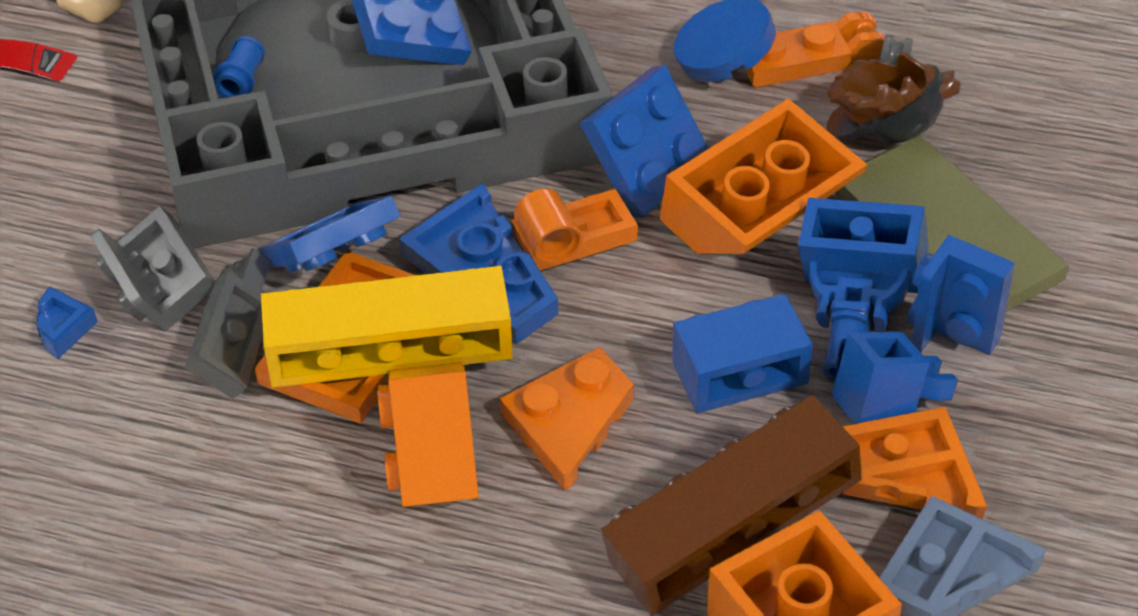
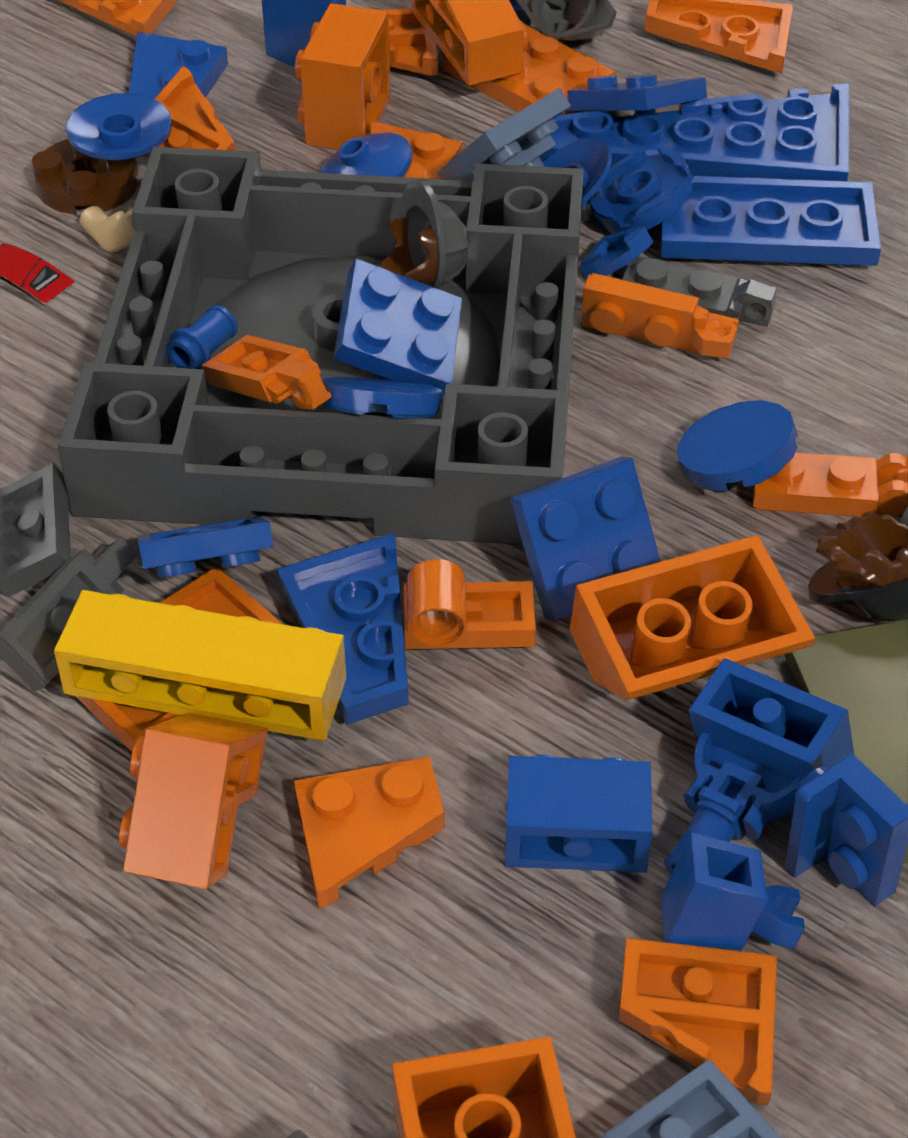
camera: 20 degrees right, 0 degrees up
(322, 78) = (268, 372): none -> orange hinge
(425, 73) = (382, 395): none -> blue tile
(731, 502) = (472, 989): reddish brown brick -> none

